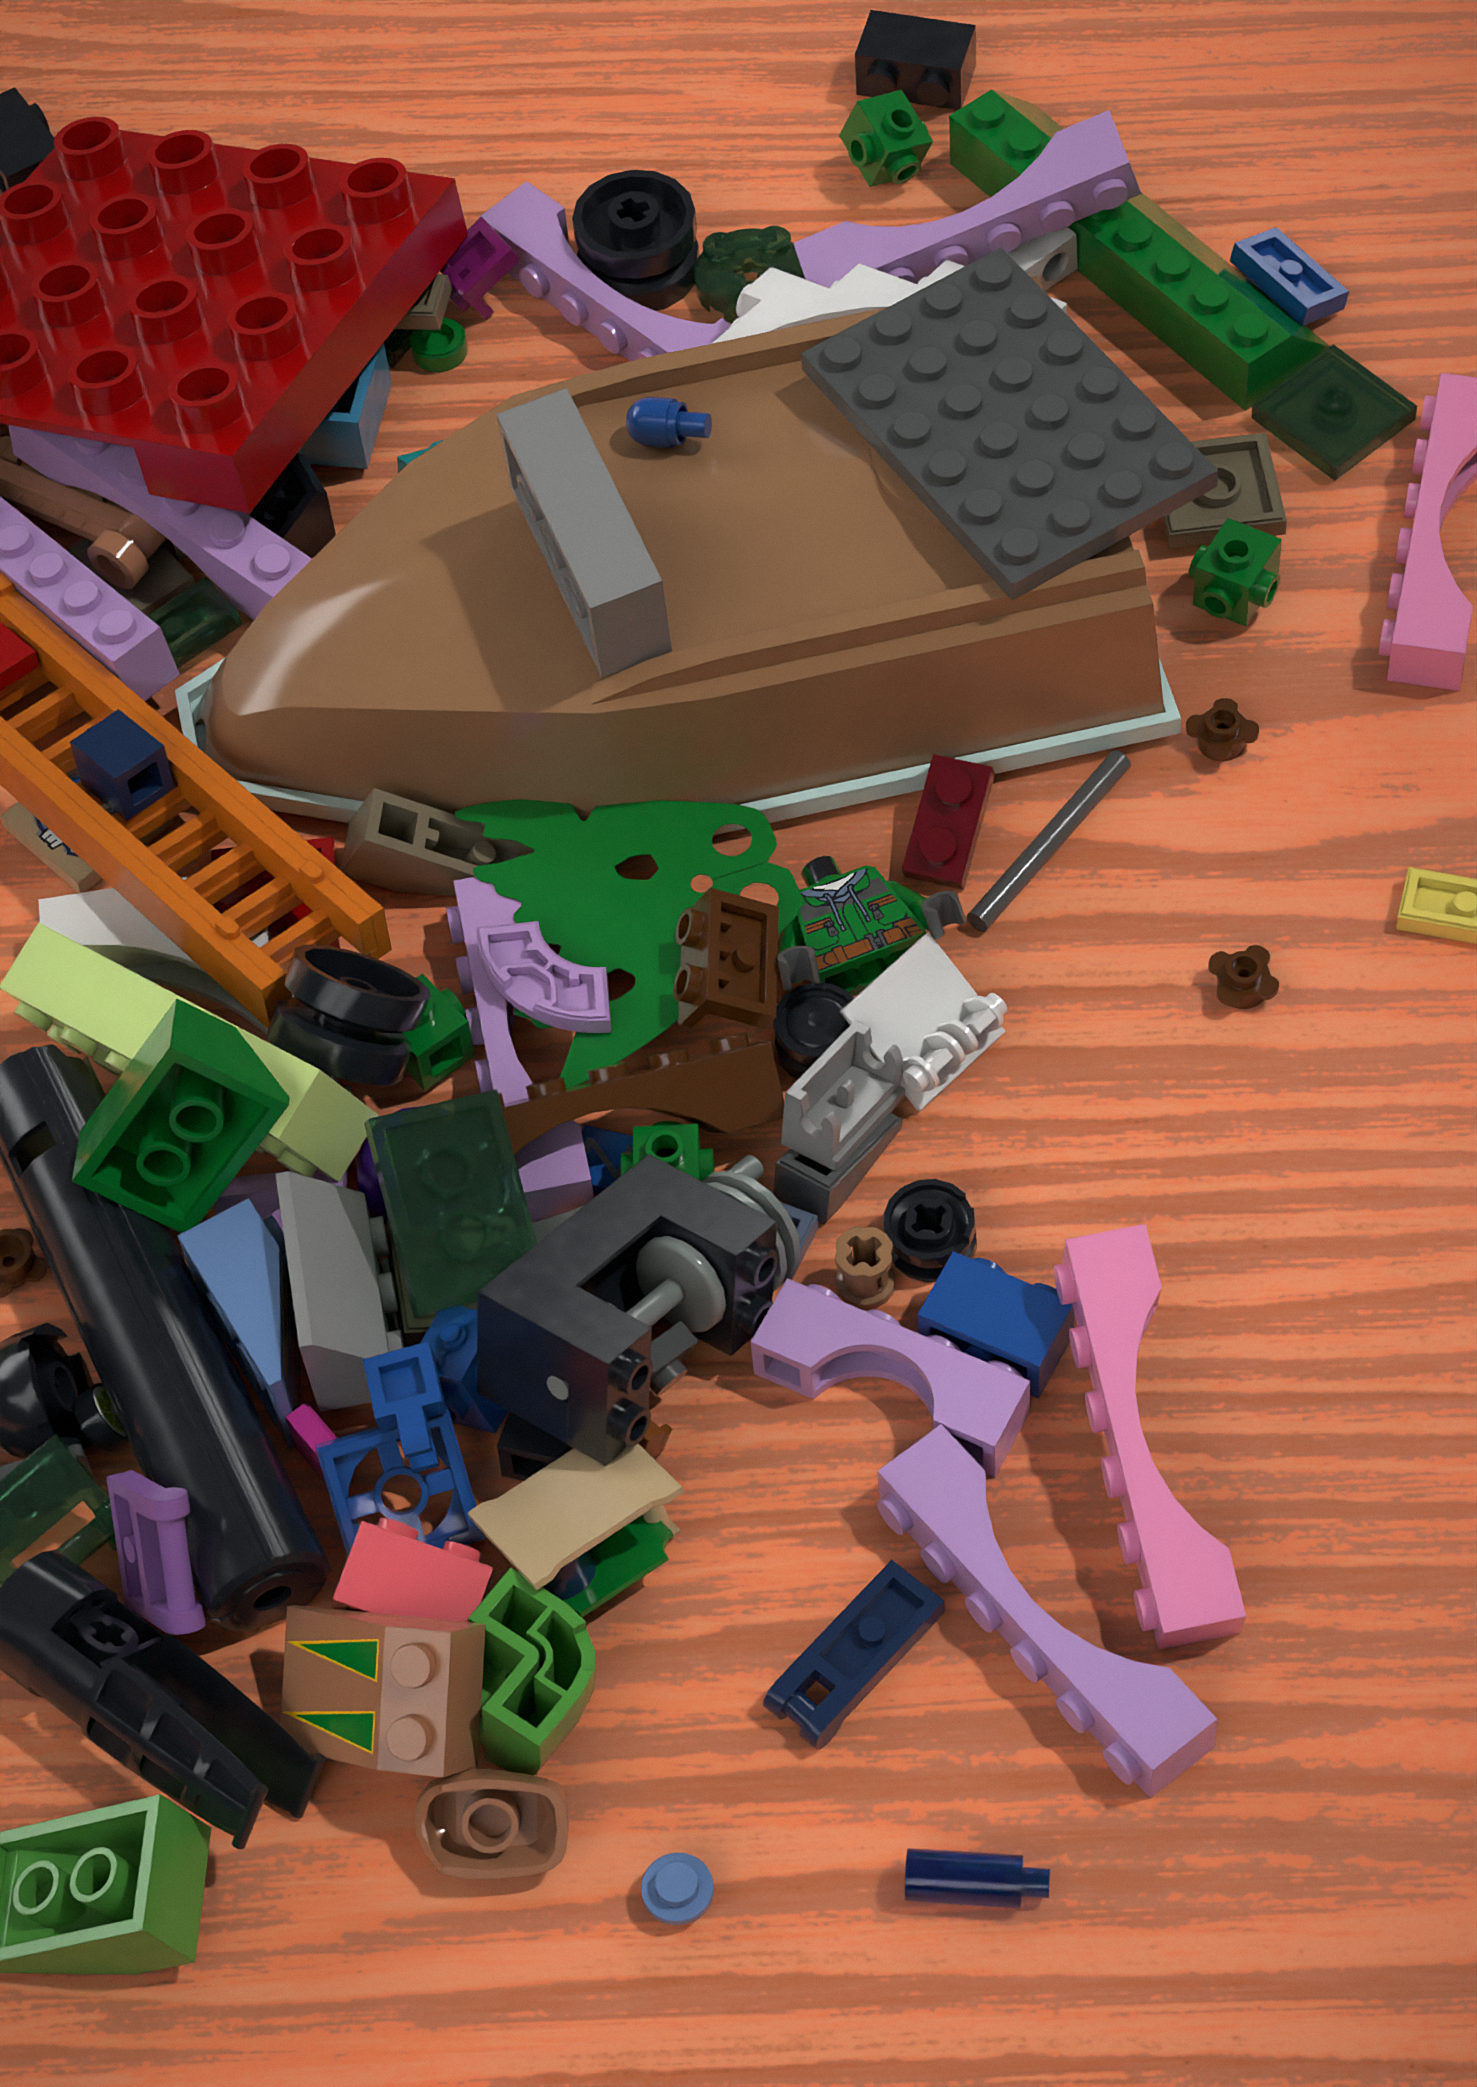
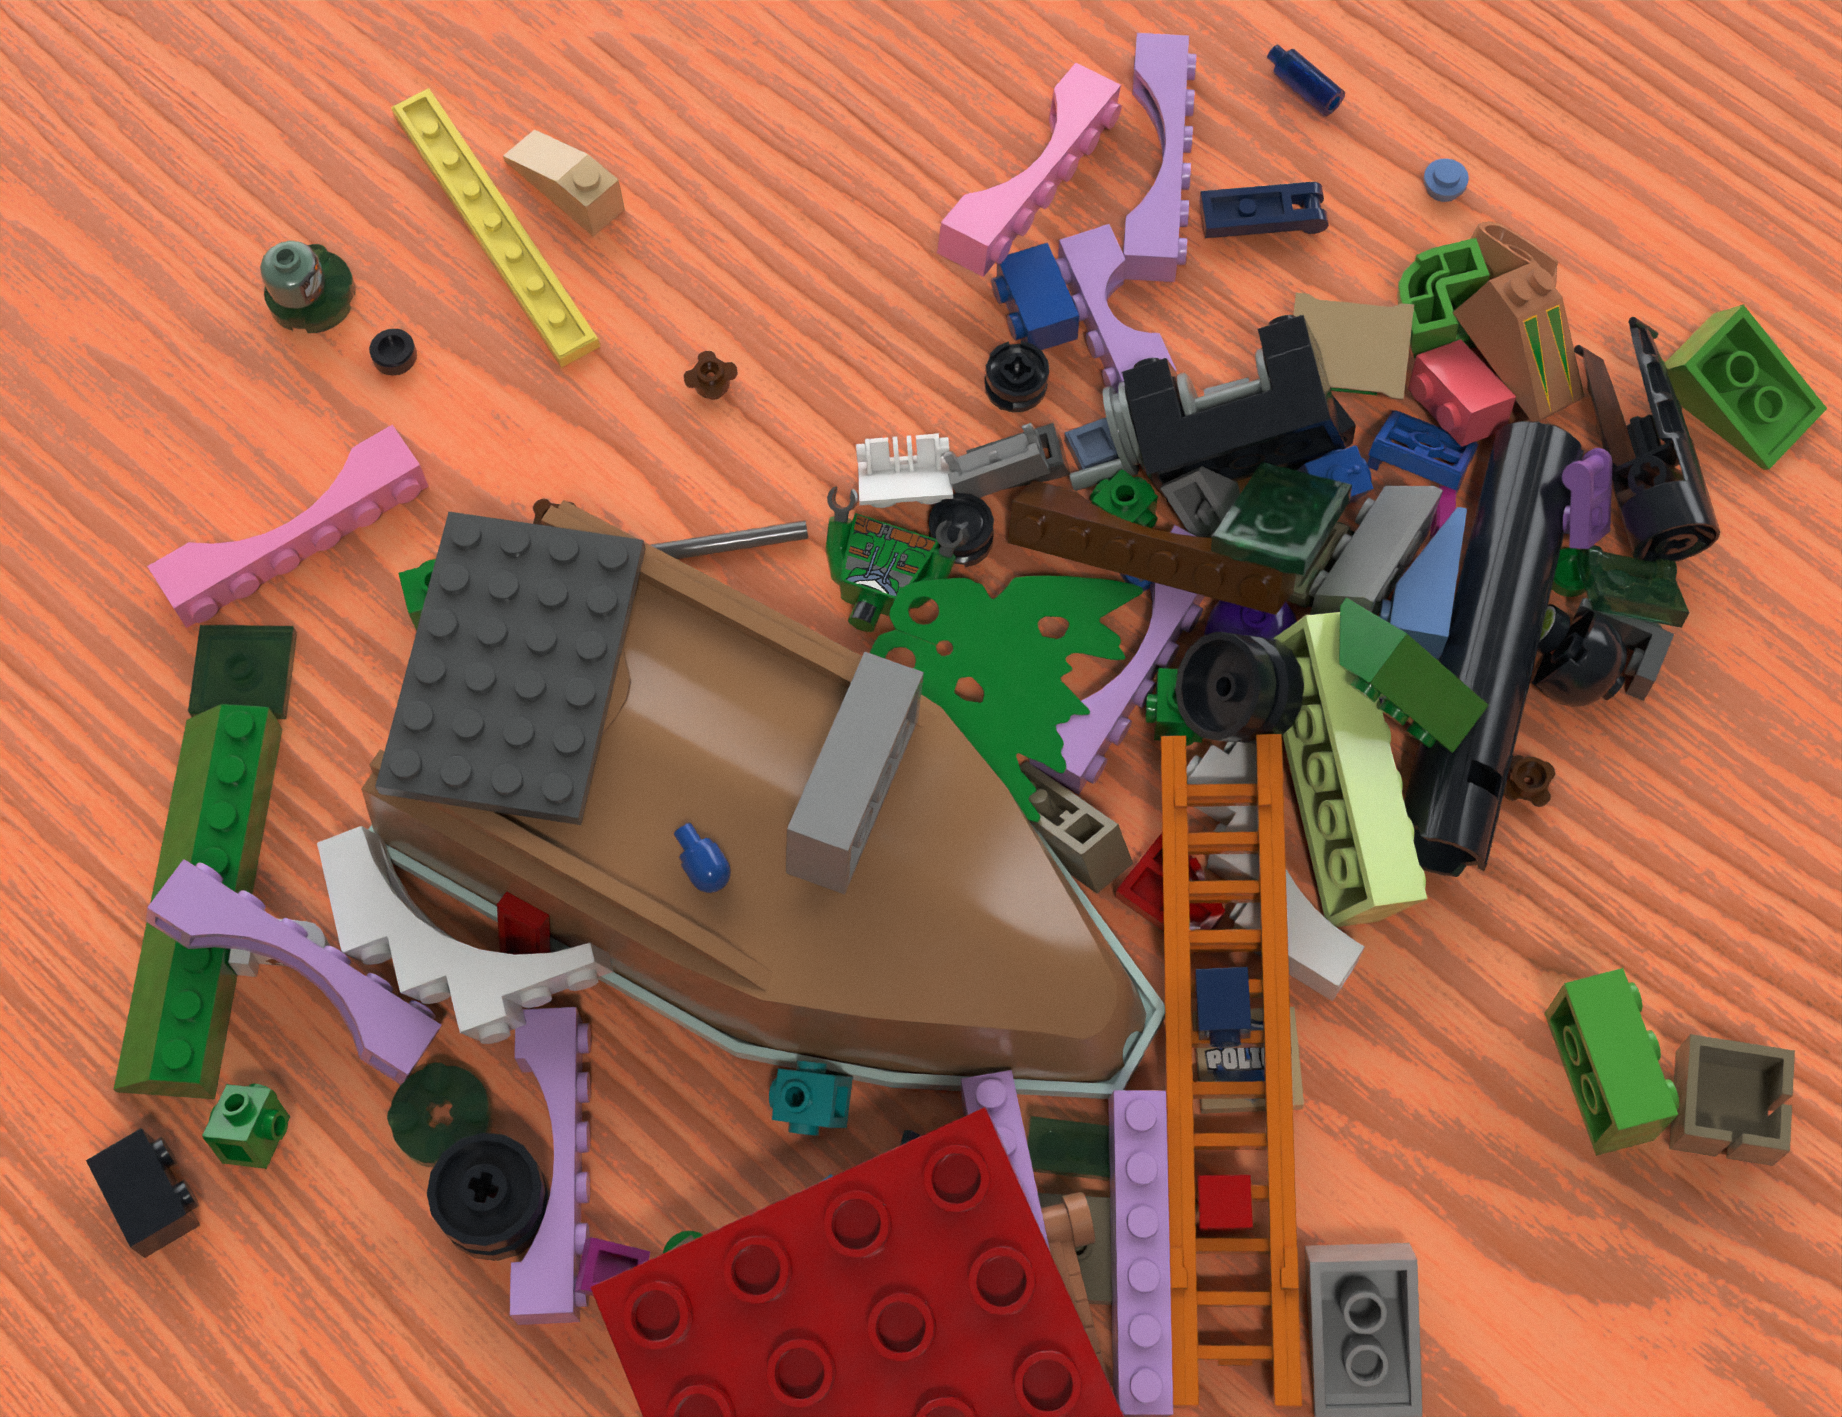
camera: 140 degrees left, 10 degrees up
(404, 1394) = (1394, 453): blue plate -> none
(542, 981) = (1095, 655): lavender tile -> none
(727, 960) = (989, 568): reddish brown bracket -> none
(868, 1267) = (1063, 380): medium nougat bush -> none
(948, 821) = (773, 582): dark red plate -> none
(1244, 492) = (364, 673): dark tan plate -> none
(1289, 276) = (149, 782): blue plate -> none

